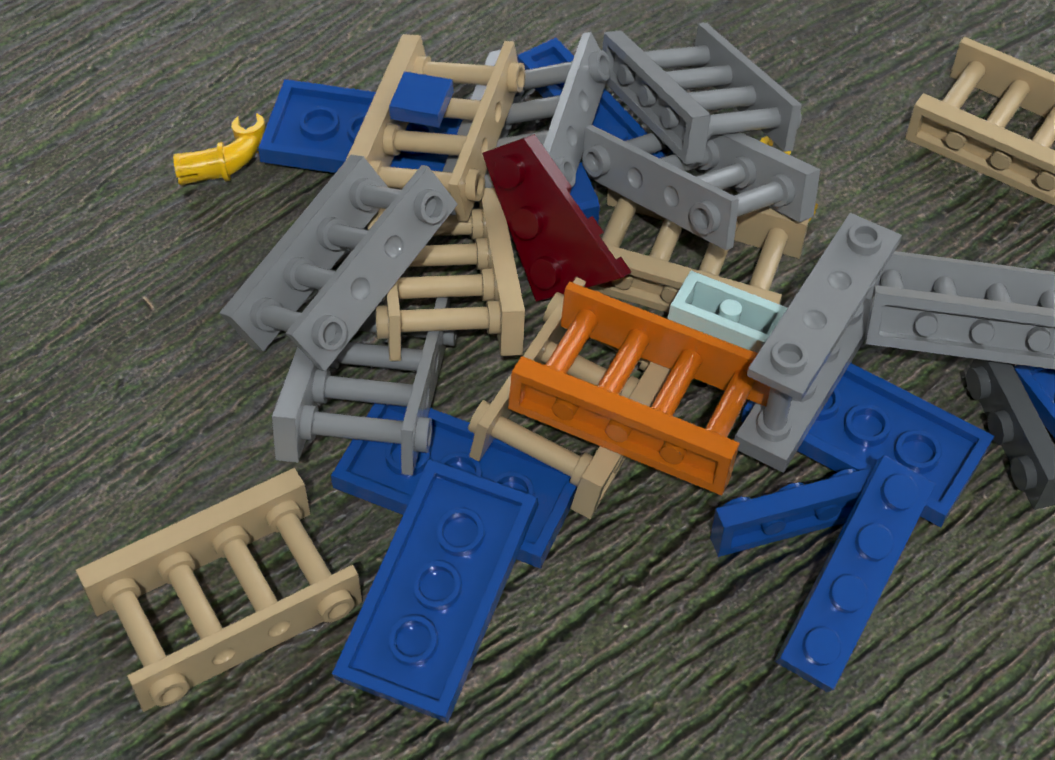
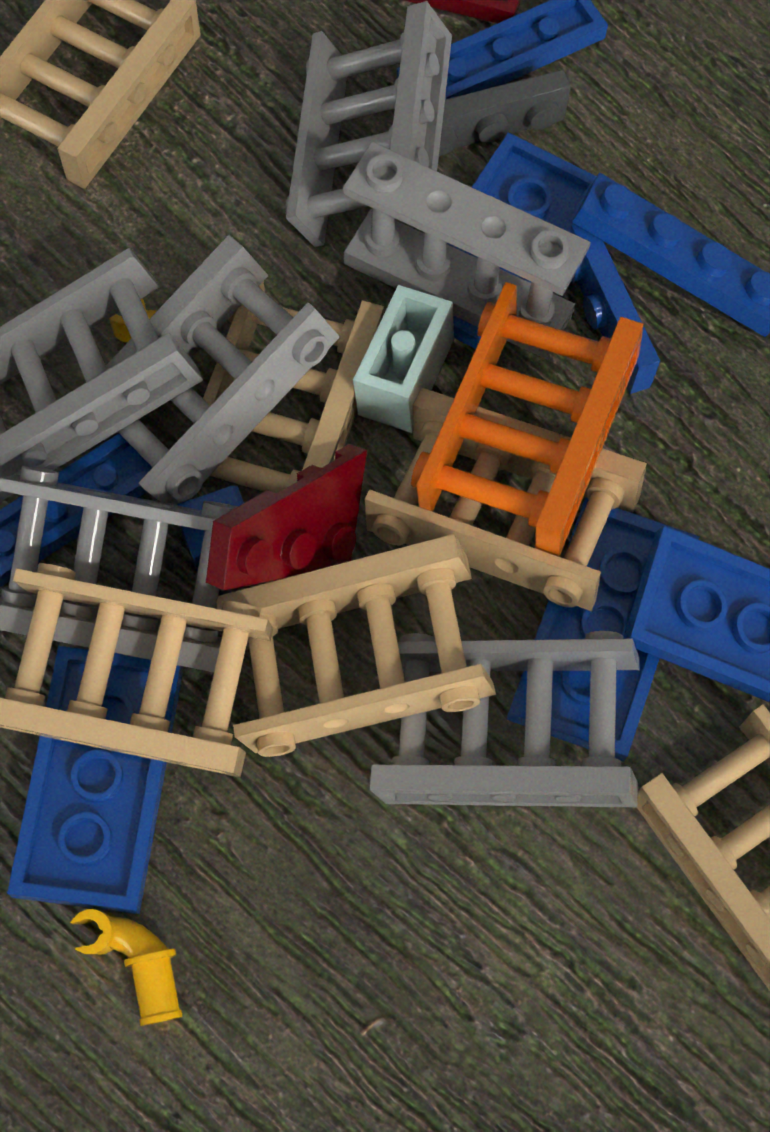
camera: 95 degrees left, 15 degrees up
(317, 241) = (380, 814): light grey fence -> none
(421, 99) = (107, 680): blue tile -> none

